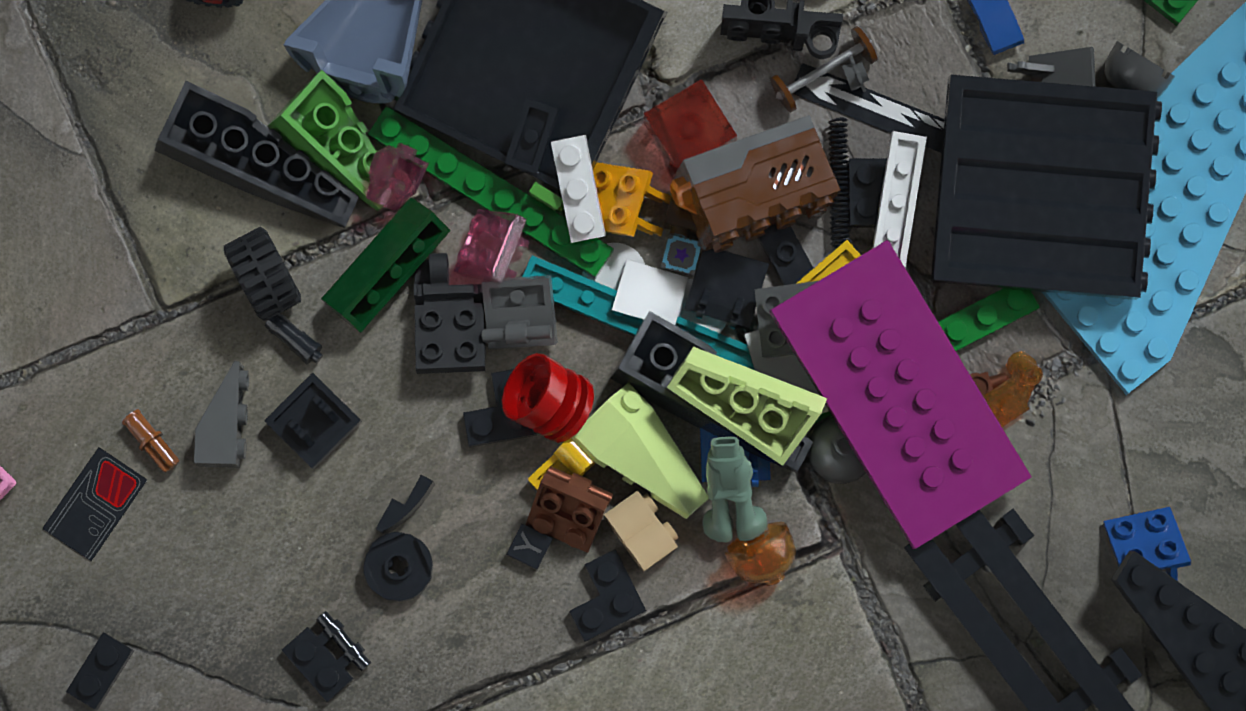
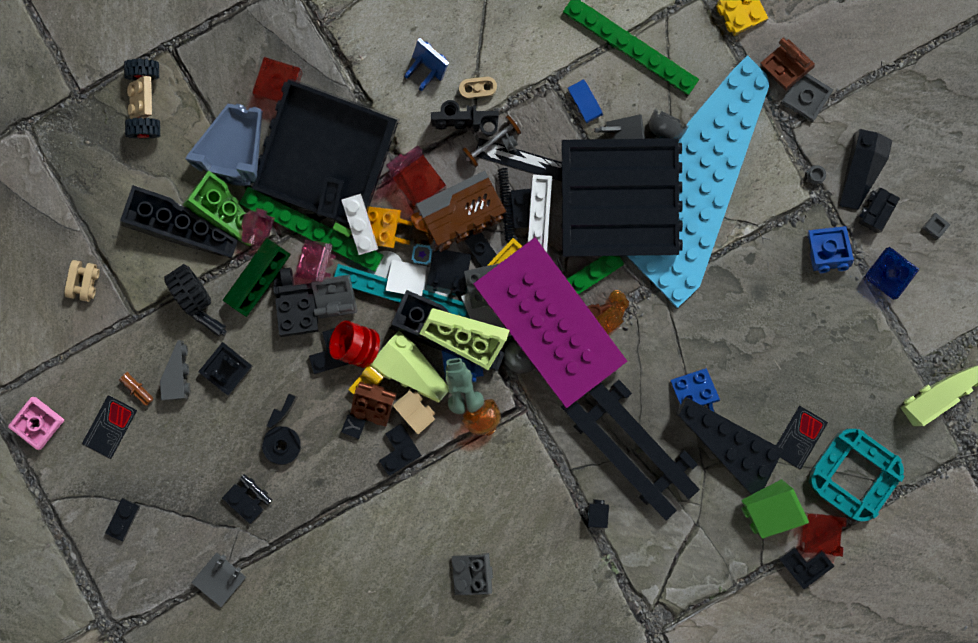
camera: 10 degrees left, 5 degrees up
(84, 258) = (87, 288): none -> tan brick
(664, 87) = (401, 161): none -> clear pink plate

